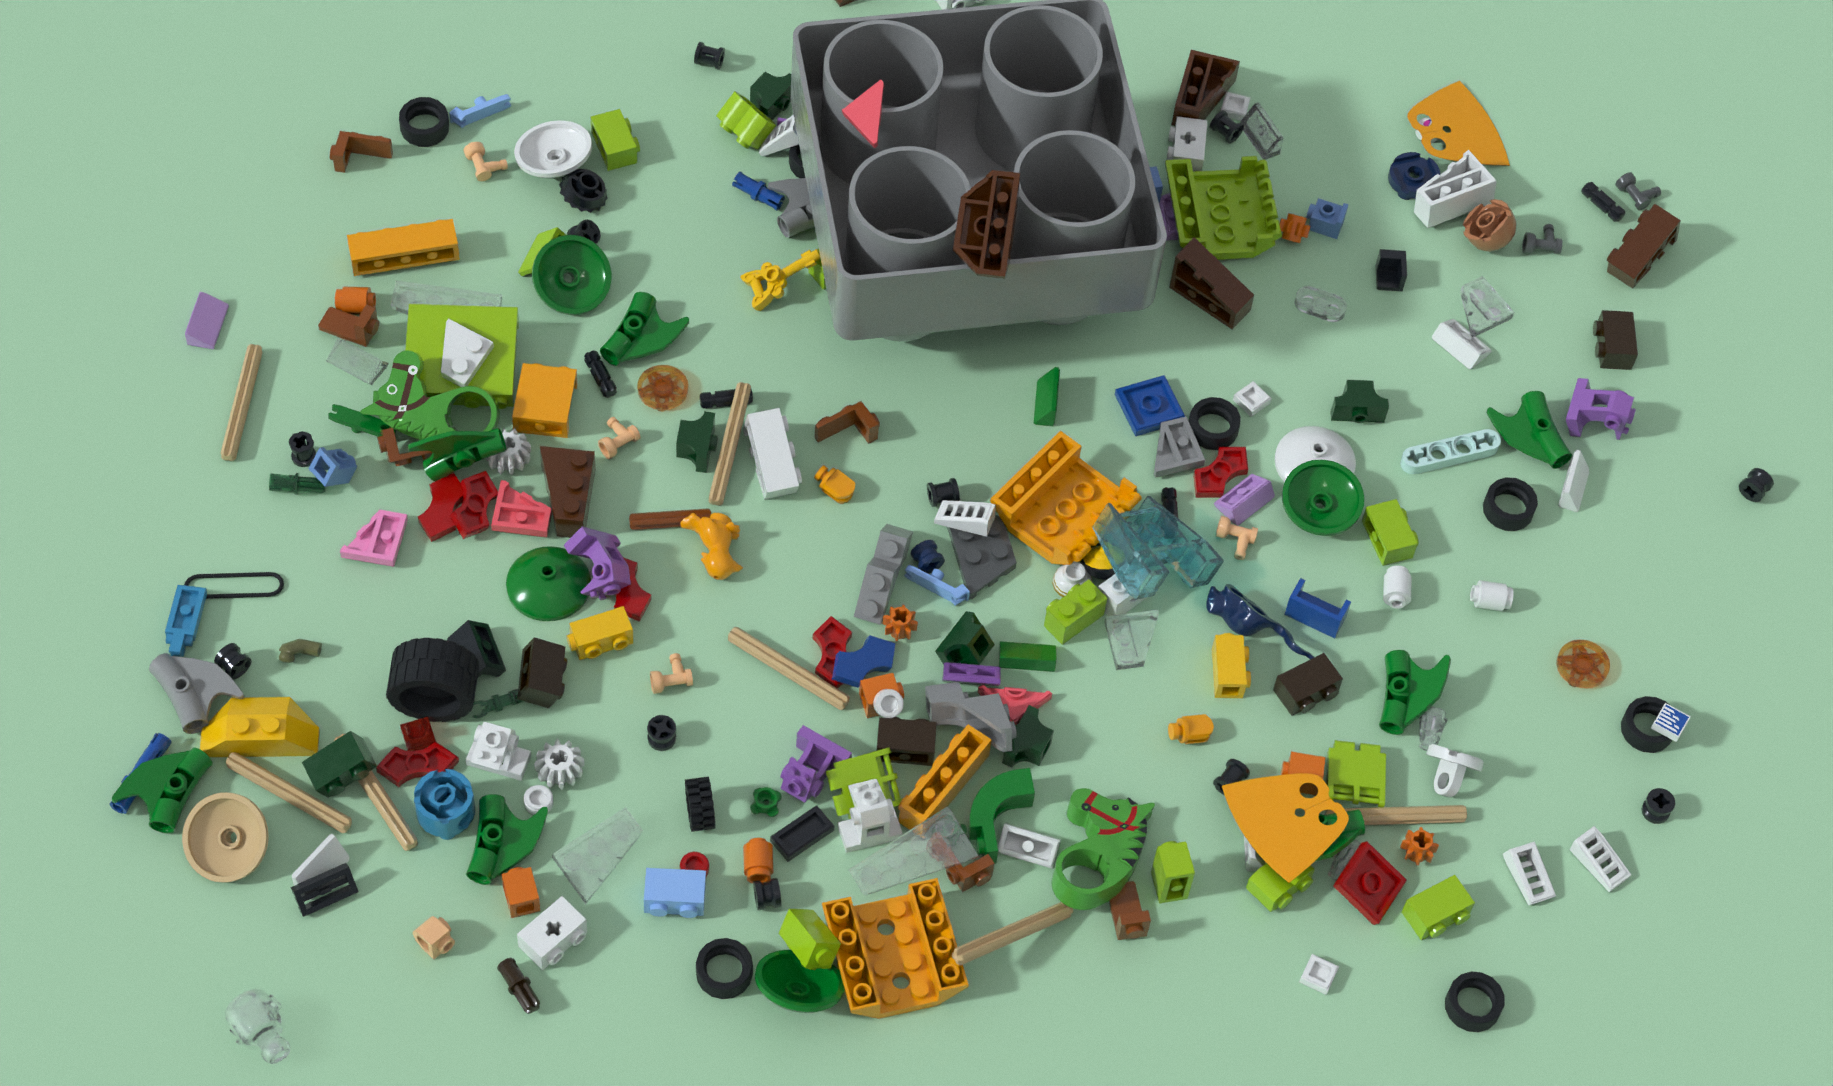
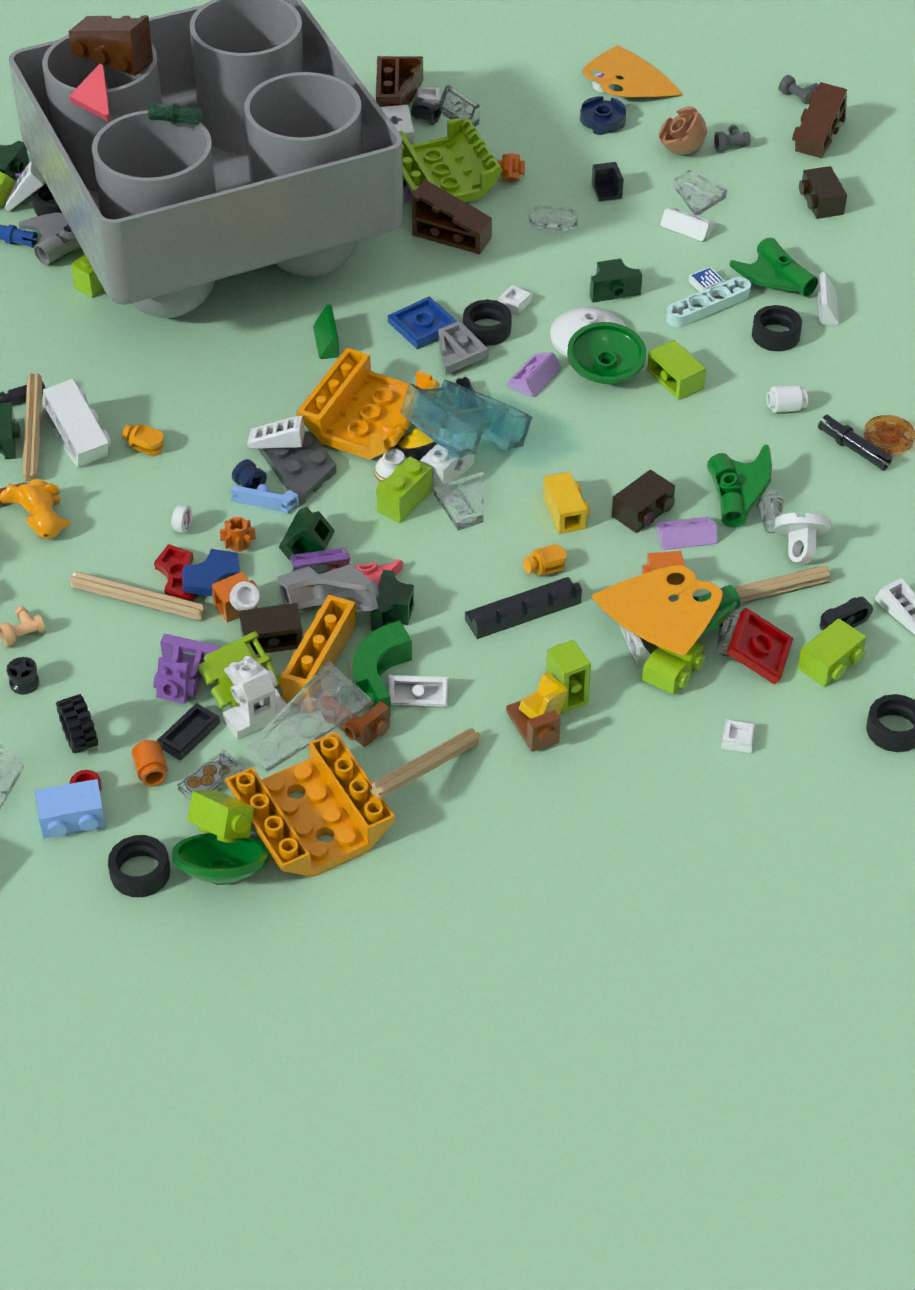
camera: 10 degrees left, 10 degrees down
(766, 794) = (144, 711): green plate -> none
(767, 894) = (166, 789): black wheel -> none
(776, 278) = (44, 292): yellow piece -> none
(812, 889) = (211, 774): none -> tile
(850, 590) = (181, 518): none -> white tile
(857, 415) = (145, 382): dark orange bracket -> none
(882, 573) = (209, 498): light grey arch -> none
(900, 55) = (114, 42): none -> reddish brown wedge
(942, 164) = (175, 114): none -> clear green axle
(943, 491) = (244, 424): black bush -> none
(988, 224) = (231, 147): reddish brown wedge -> none
(1027, 656) = (370, 538): green slope -> none
(1113, 846) = (498, 669): bright green animal -> none
(1144, 892) = (547, 698): none -> yellow panel
(1155, 776) = (523, 607): none -> black hinge
(1211, 480) = (500, 364): red tile -> none
(1234, 772) = (597, 582): black bush -> none
(1244, 535) = (545, 401): light nougat piece -> none
(1245, 616) = (561, 458): dark blue animal -> none
(1316, 612) = (630, 445): blue panel -> none
(1326, 218) = (537, 156): medium blue brick -> none
(1341, 727) = (686, 532): none -> lavender slope
(1356, 774) = (716, 560): lime plate -> none
(1397, 587) = (698, 409): white brick -> none
(1414, 840) = (795, 606): orange gear -> none
(1454, 191) = (642, 115): white wedge -> none
(1456, 423) = (704, 279): none -> tile
(1466, 870) = (852, 612): none -> black plate
(1537, 656) = (845, 436): none -> black pin
(1583, 410) = (830, 236): medium lavender tile -> none
(1603, 201) = (773, 102): black axle -> none

